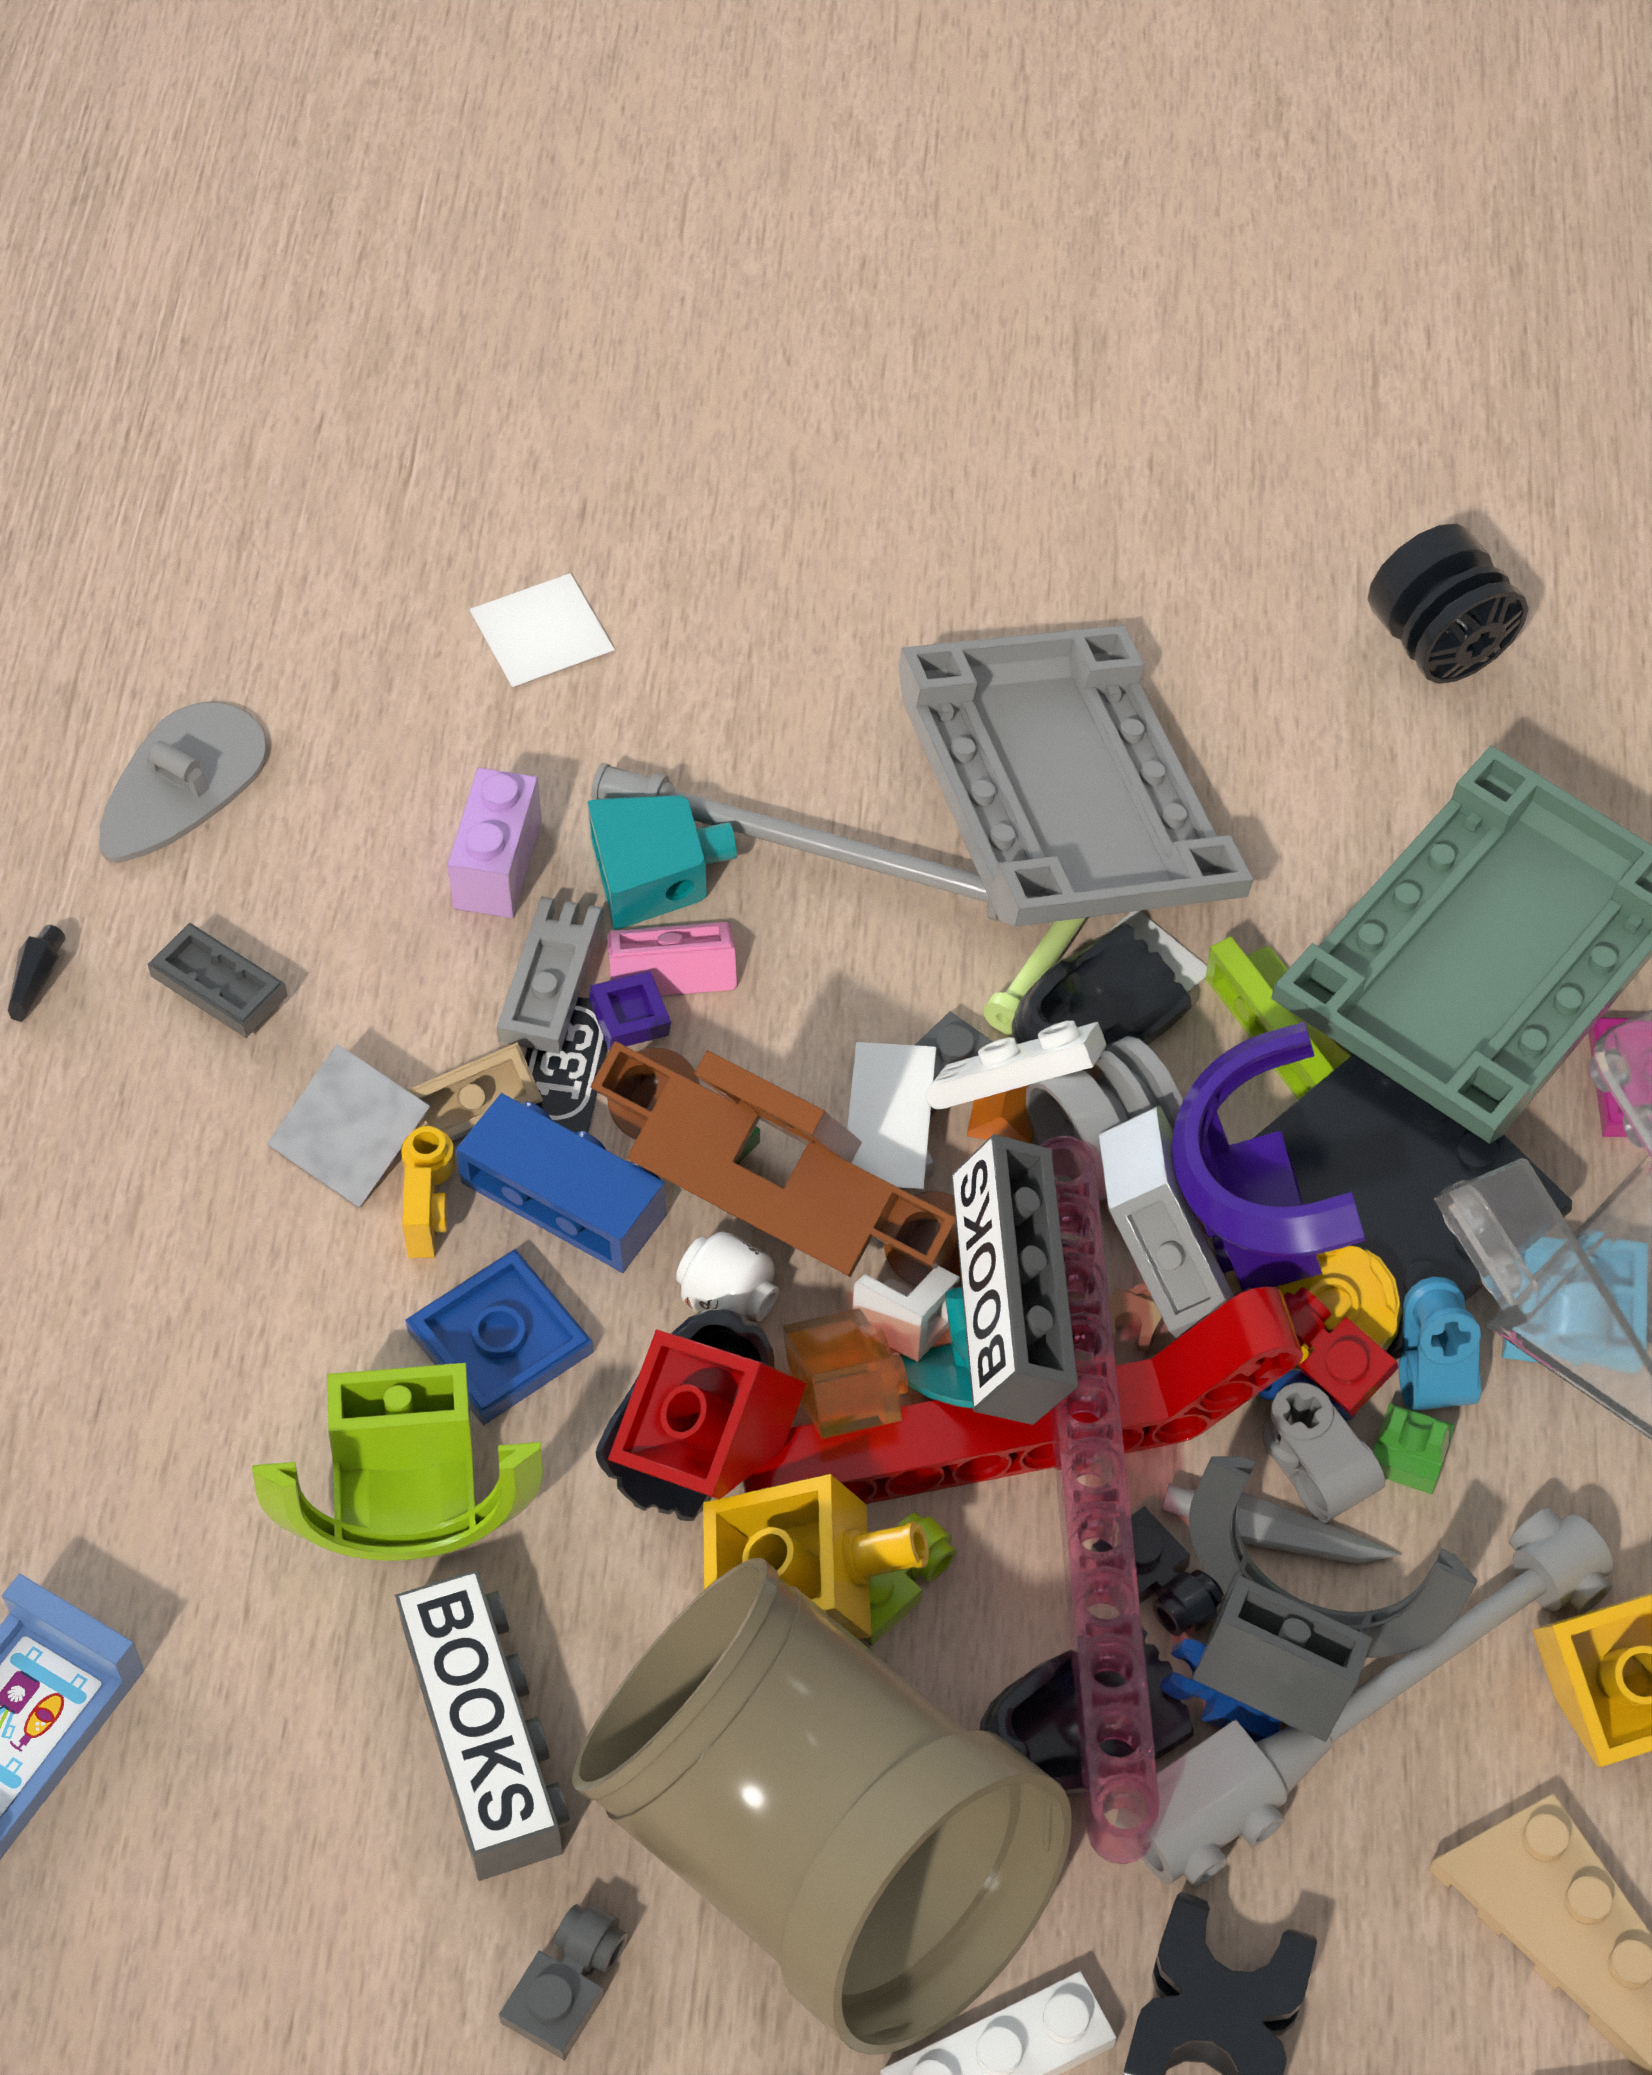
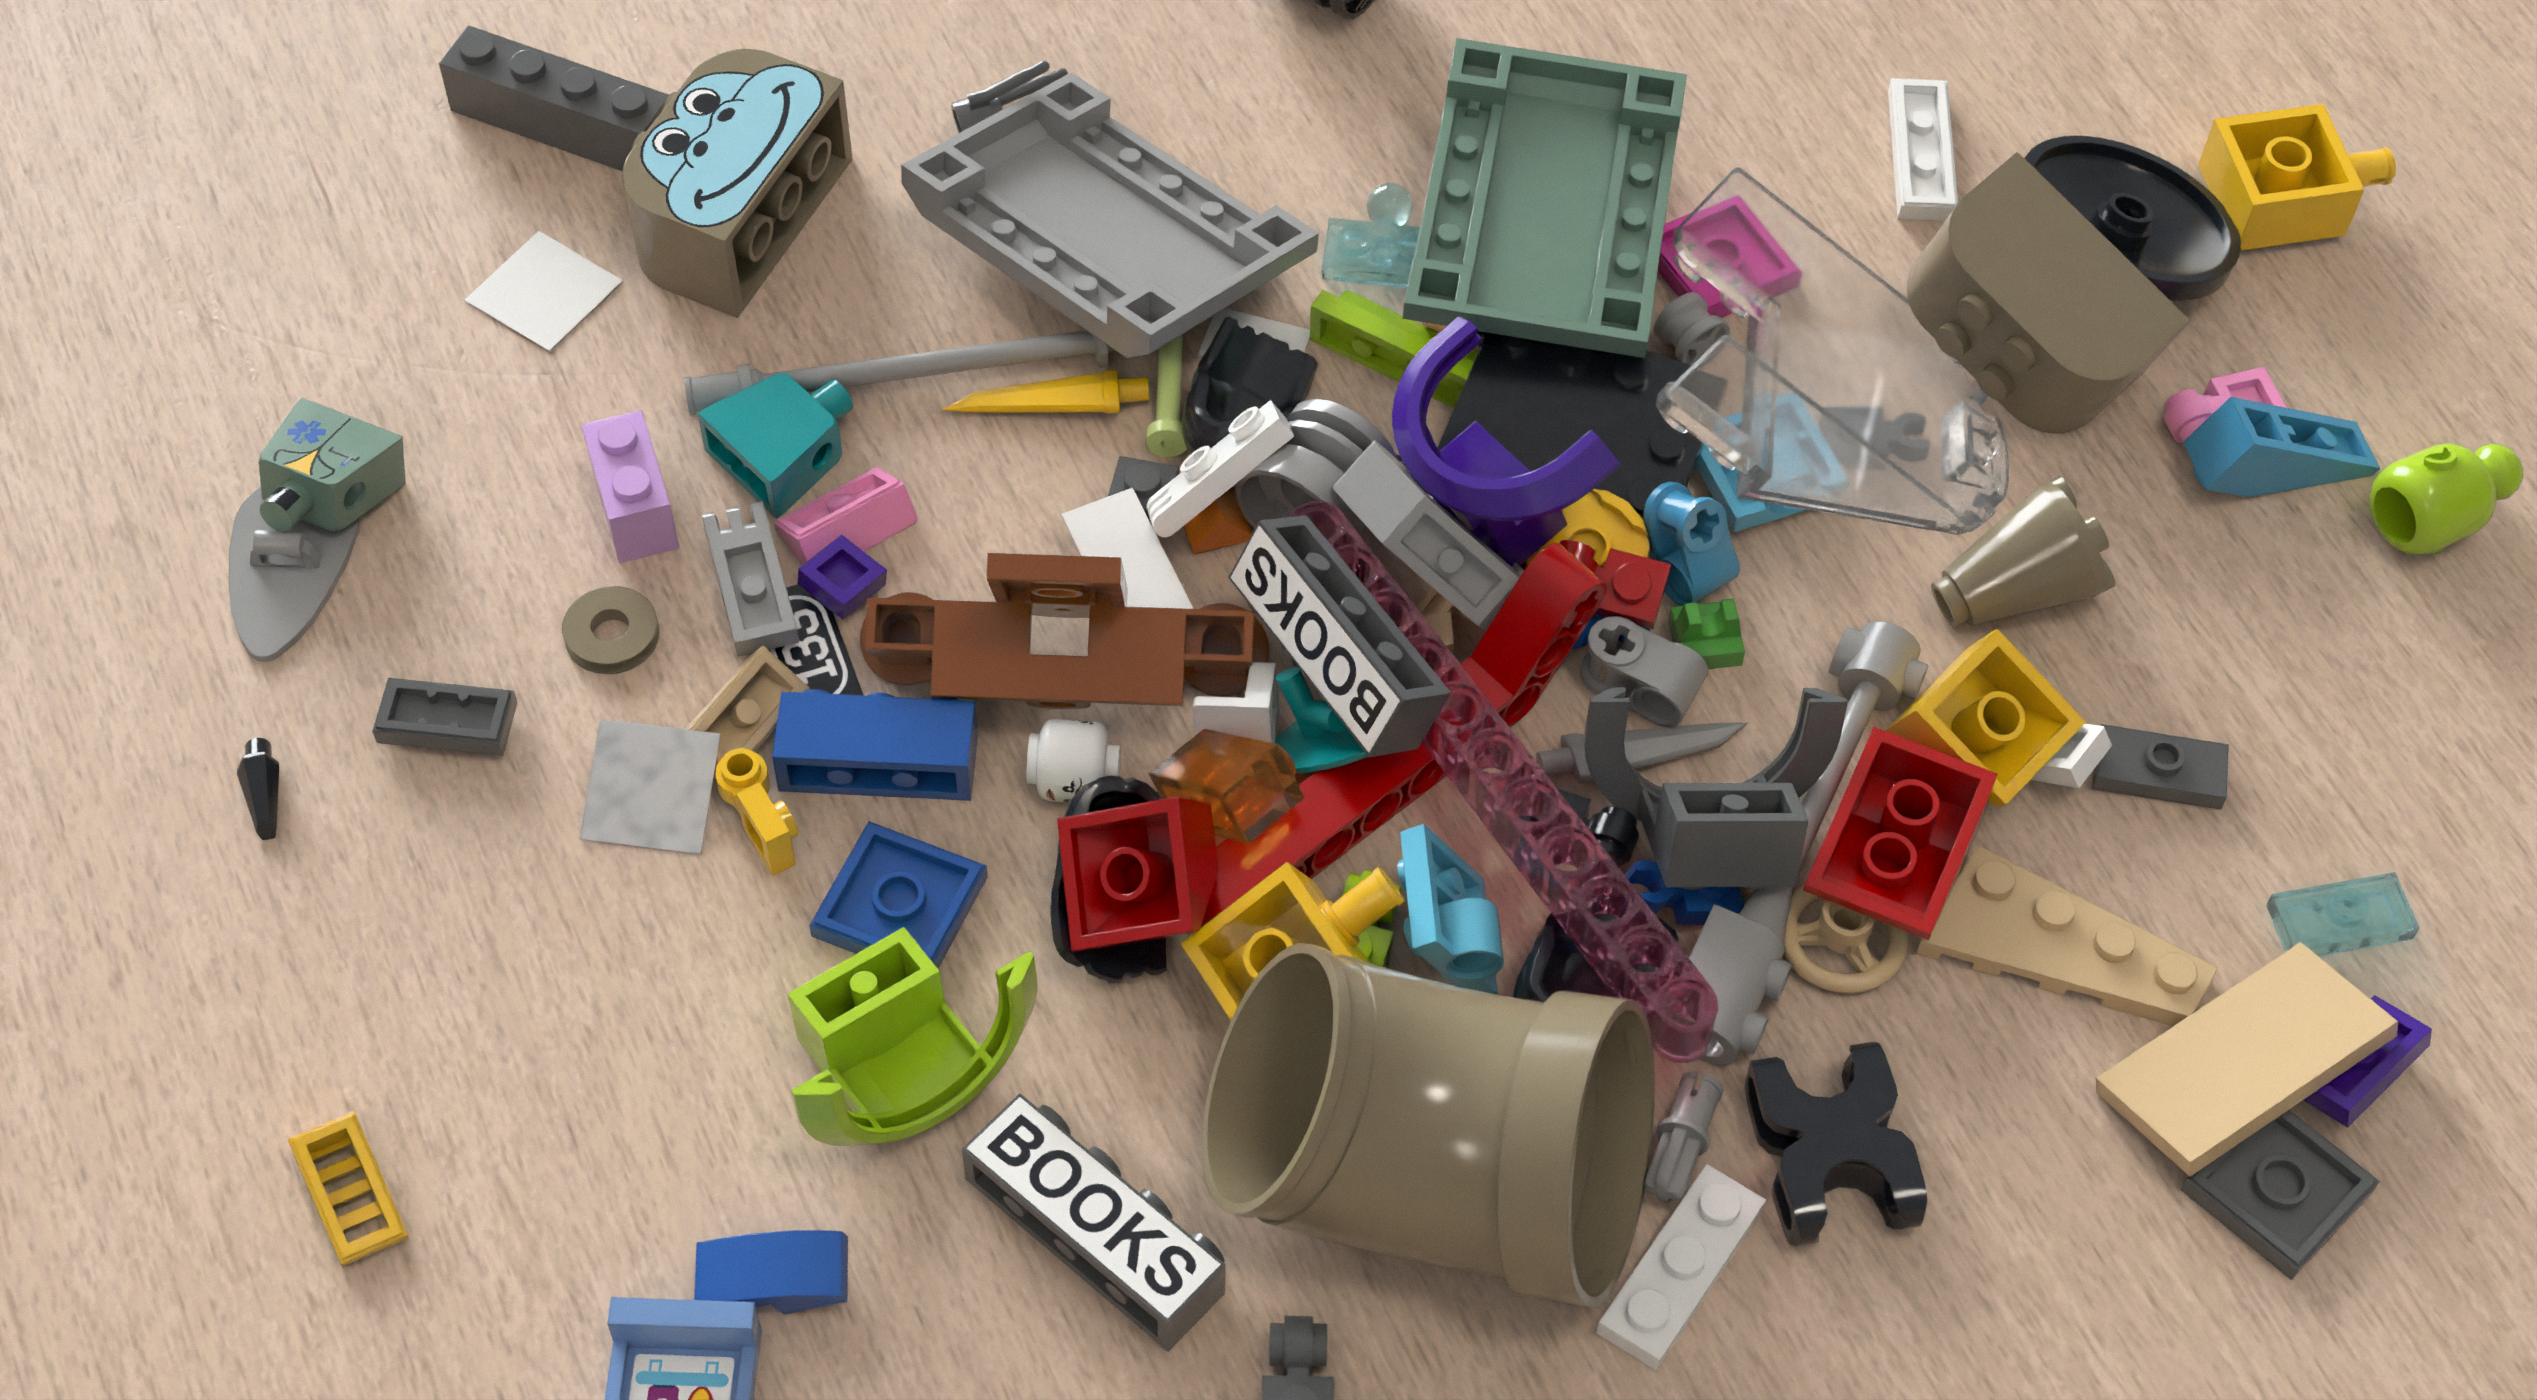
camera: 30 degrees left, 0 degrees up
(180, 1621) = (775, 1268): none -> blue slope
(250, 712) = (327, 468): none -> sand green torso
(406, 991) = (616, 654): none -> dark tan piece
(651, 463) = (547, 97): none -> dark grey brick
(755, 593) = (734, 174): none -> brick
(953, 935) = (1073, 394): none -> yellow bar
(973, 1598) = (1449, 912): none -> medium azure plate
(1036, 620) = (989, 101): none -> dark grey plant
(1073, 1932) = (1682, 1137): none -> light grey axle
(1306, 913) = (1374, 250): none -> clear light blue plate
(1377, 1790) = (1847, 942): none -> tan piece
(1467, 1745) = (1901, 833): none -> red slope
(1581, 1136) = (1689, 327): none -> light grey wheel

